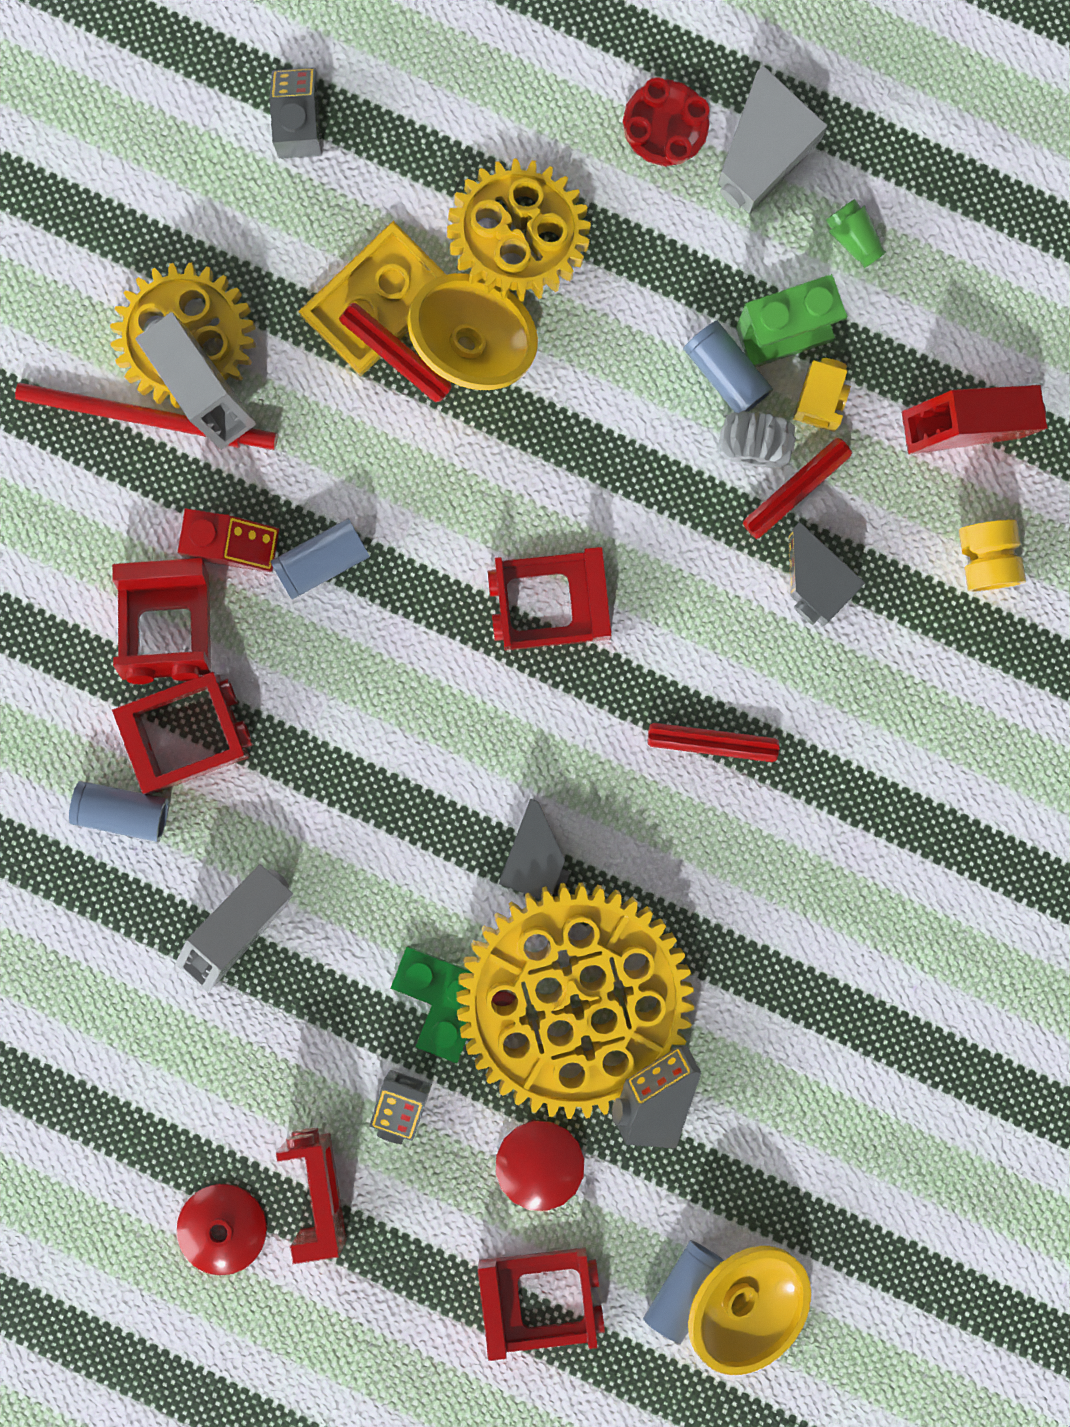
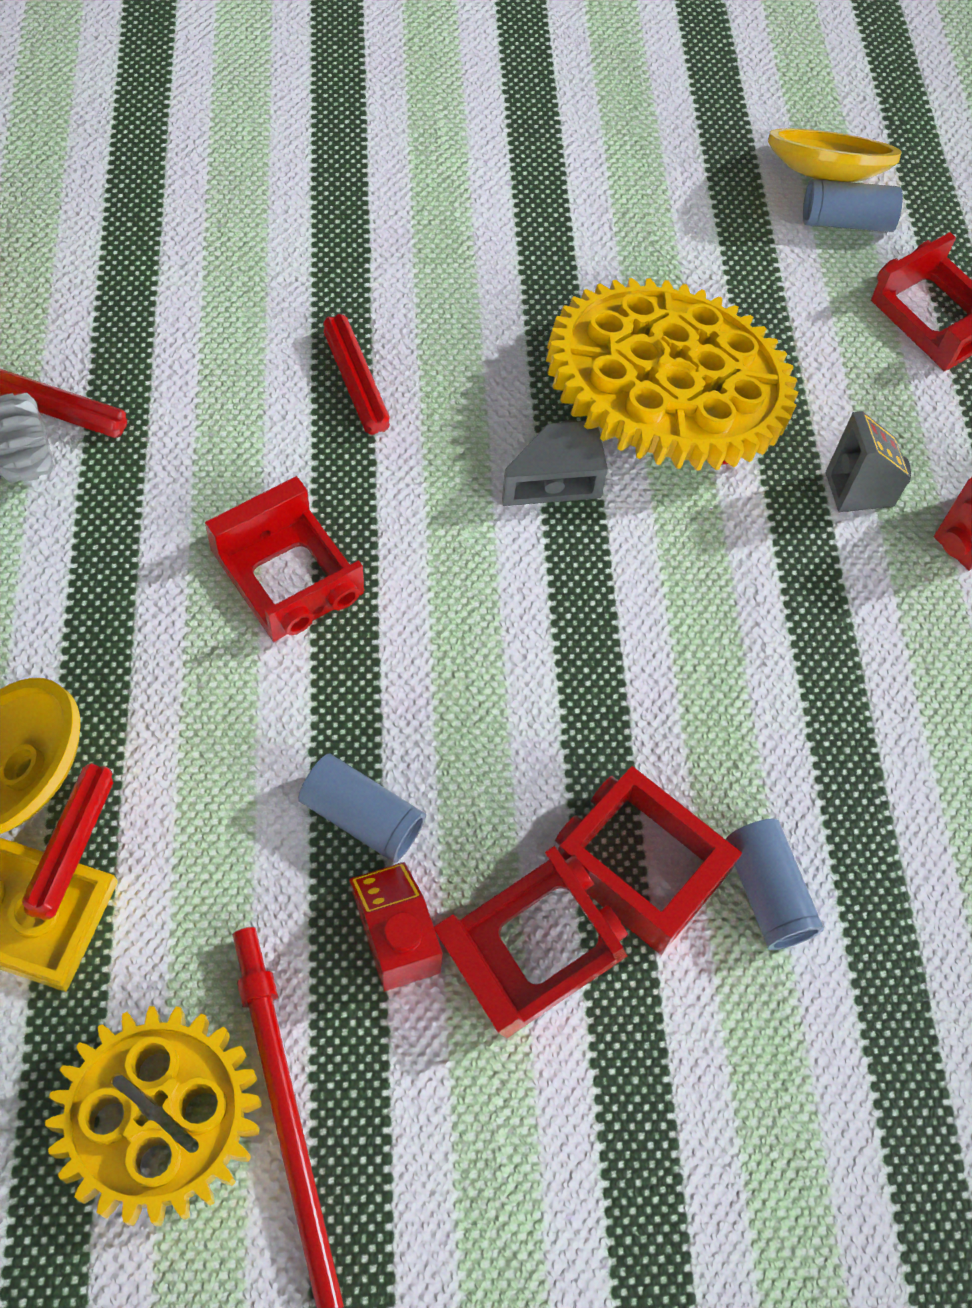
camera: 125 degrees left, 25 degrees down
(195, 381) = (204, 1043): light grey slope -> none
(233, 927) = (815, 695): light grey slope -> none
(436, 984) = (735, 495): green plate -> none
(539, 1165) = (832, 353): red dish -> none
(657, 1100) = (712, 268): dark grey slope -> none
(818, 578) = (142, 346): dark grey slope -> none
(992, 555) = (51, 222): yellow wheel -> none

